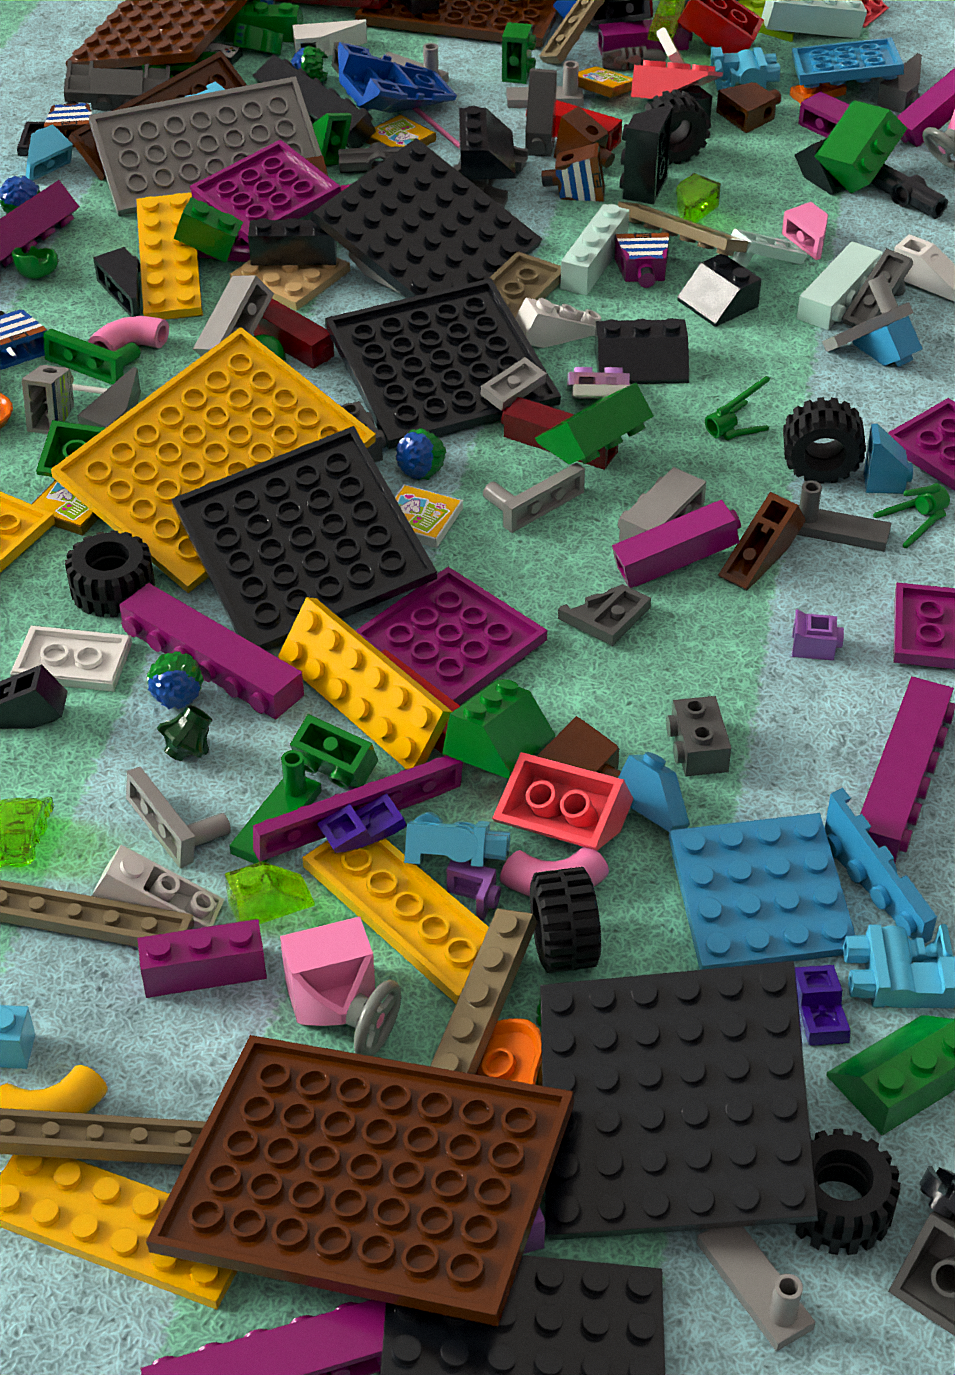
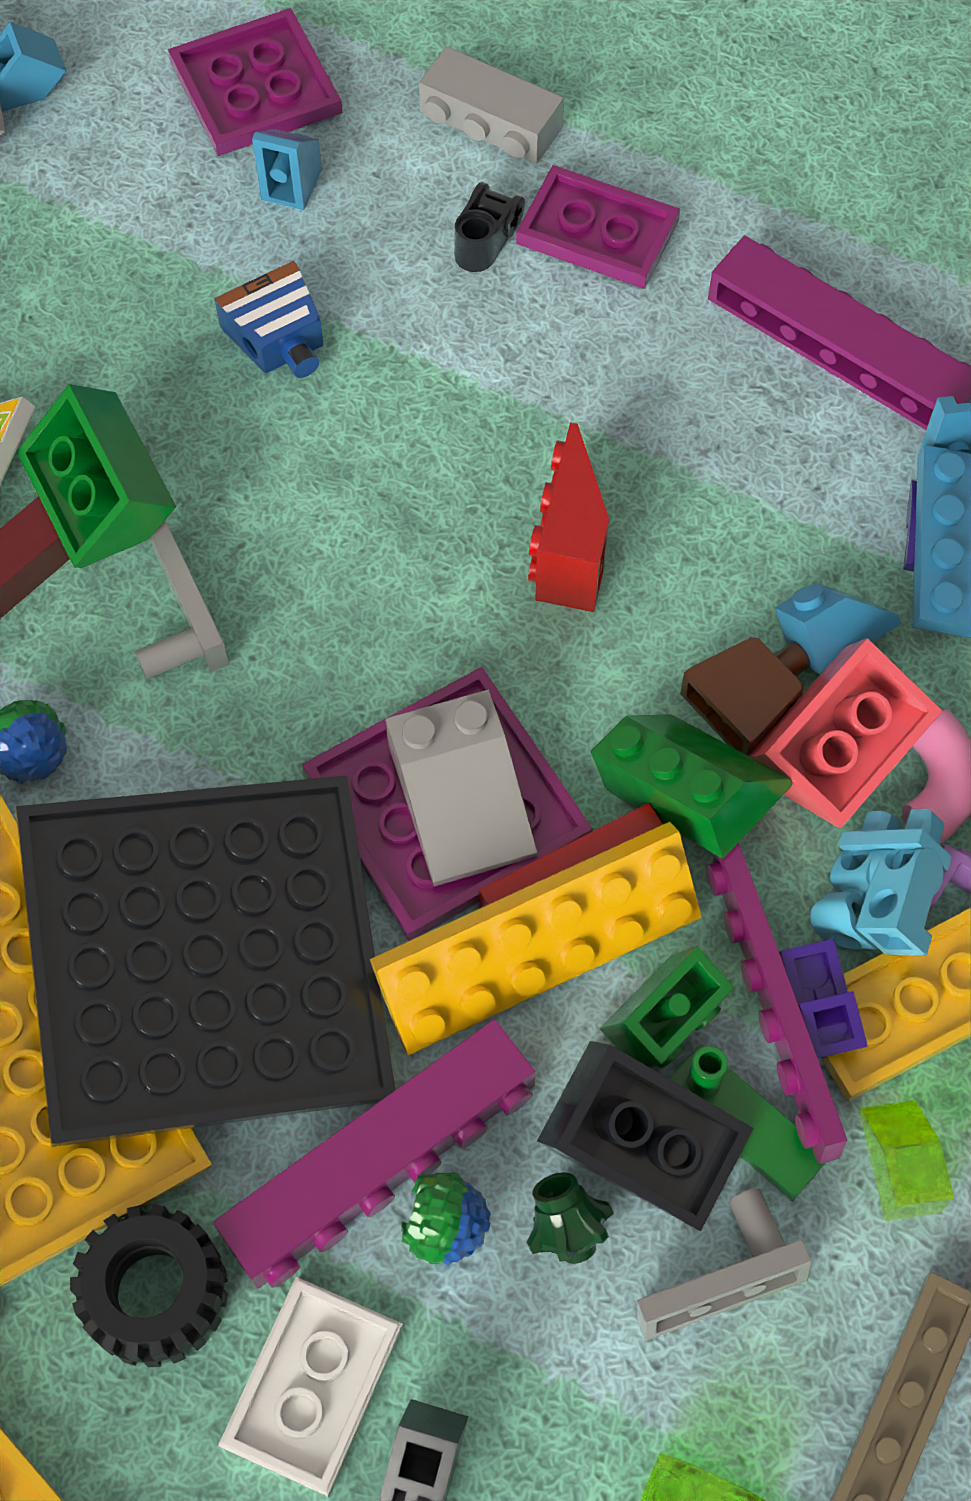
camera: 75 degrees left, 20 degrees up
(143, 882) = (871, 1323): white slope -> none
(246, 755) = (645, 1134): none -> black slope
(428, 513) = (150, 761): tile -> none
(452, 625) = (460, 787): none -> light grey slope
(607, 614) = (461, 583): dark grey wing -> none
(666, 642) = (573, 531): none -> red slope
(668, 499) = (275, 455): light grey brick -> none
(676, 543) = (369, 453): magenta brick -> none
(699, 736) = (735, 539): dark grey brick -> none
(724, 419) = (101, 325): green plant -> none
(757, 480) = (274, 321): none -> torso
(763, 541) = (390, 354): reddish brown slope -> none
(816, 636) = (587, 346): medium lavender window -> none
(821, 421) = (230, 210): black tyre -> none
(839, 526) = (363, 268): dark grey piece -> none
(890, 565) = (485, 227): none -> black piece
(930, 501) = (366, 147): green plant -> none

